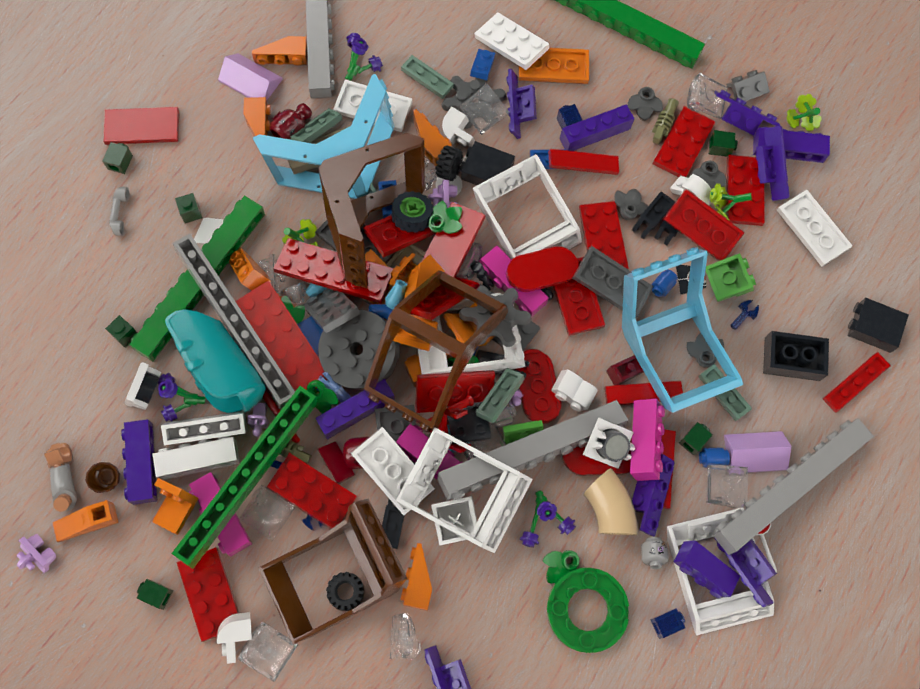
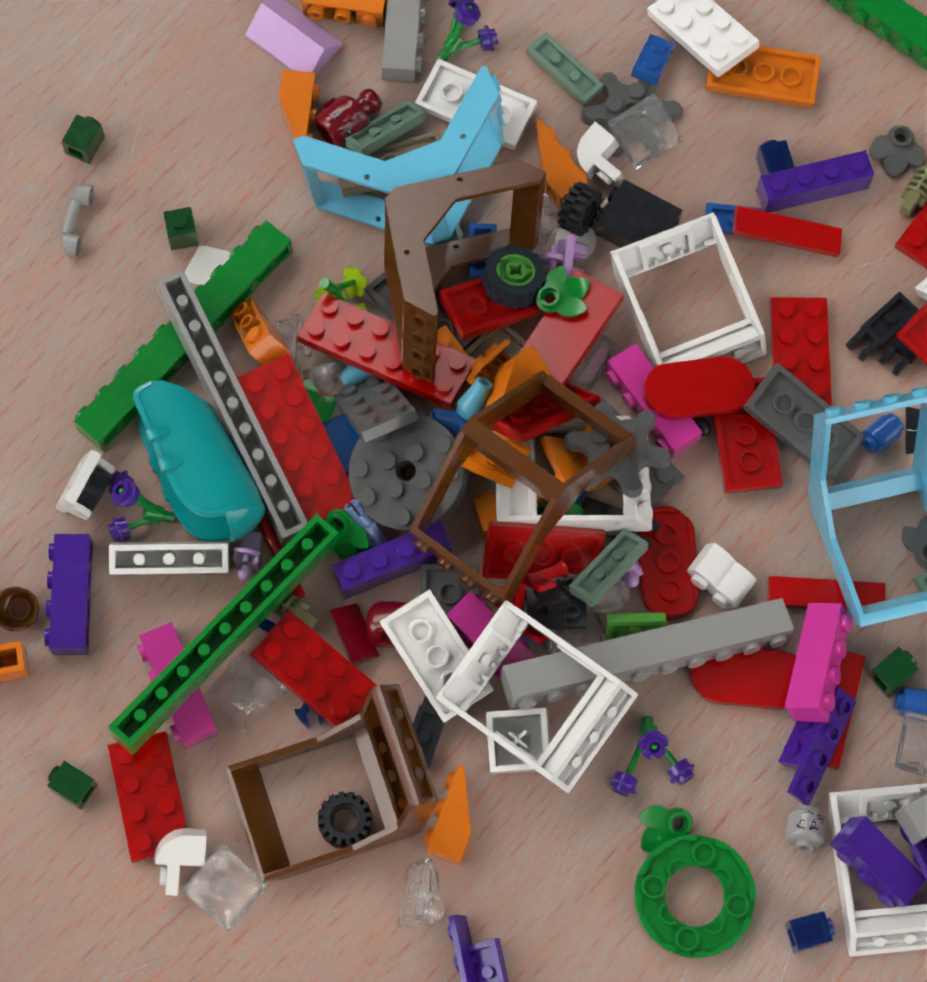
camera: 10 degrees right, 0 degrees up
(121, 331) = (63, 400): dark green brick -> none
(141, 125) = (122, 92): tile -> none
(175, 507) = (115, 664): orange bracket -> none
(196, 458) = (152, 600): white brick -> none
(482, 275) = (606, 384): black piece -> none
(522, 103) = (703, 129): dark purple bracket -> none
(610, 442) = (762, 660): piece -> none
(612, 505) = (751, 751): tan brick -> none
(624, 370) = (802, 557): dark red slope -> none
(630, 203) = (851, 302): dark grey plate -> none

